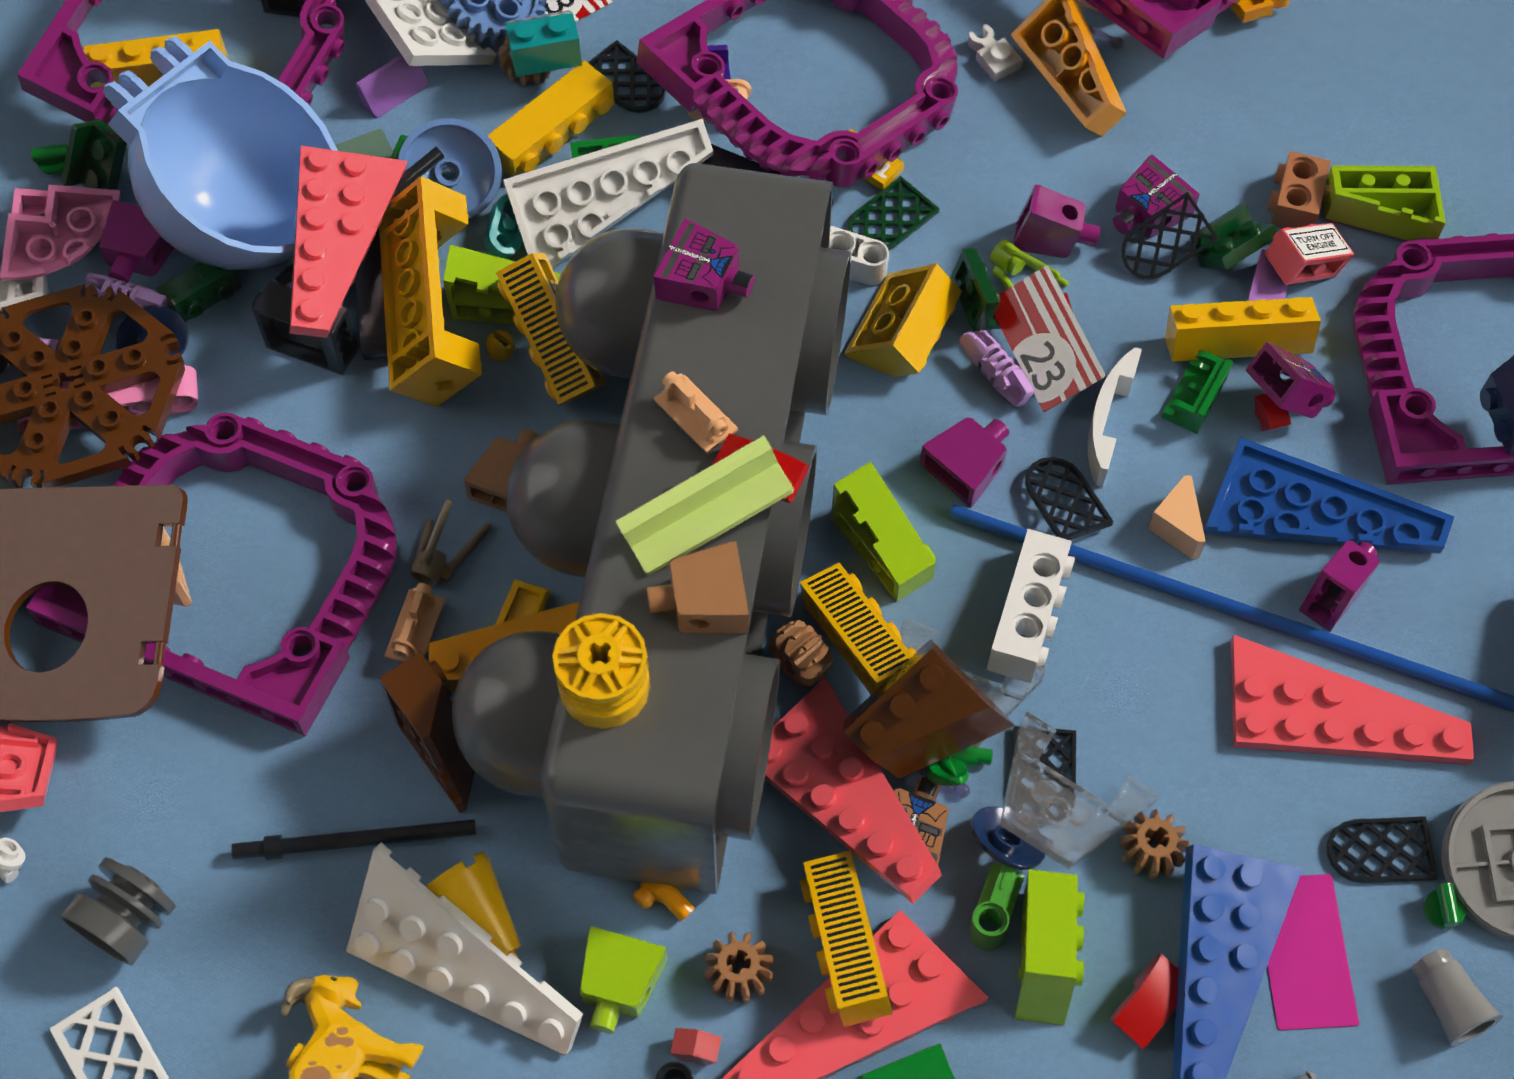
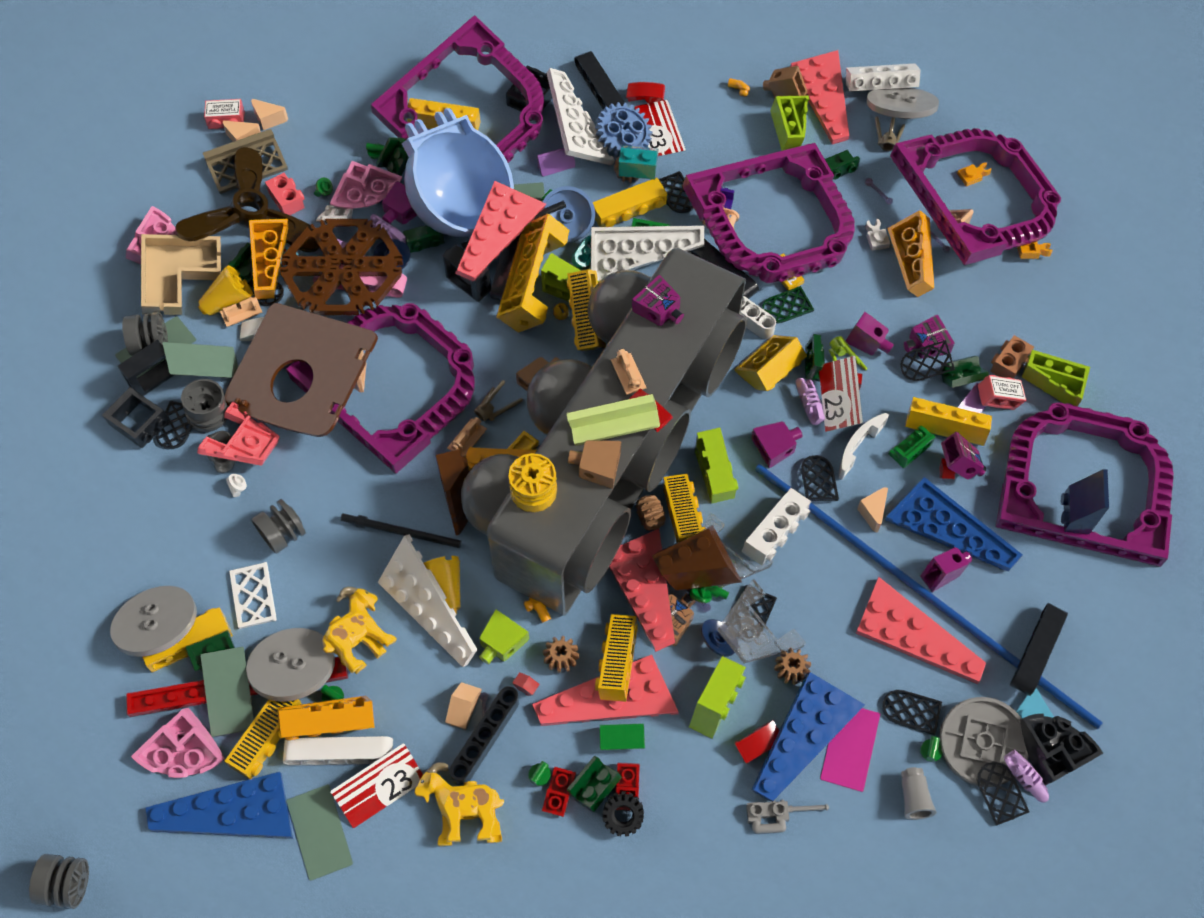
camera: 20 degrees right, 0 degrees up
(996, 905) = (700, 668): bright green piece -> none

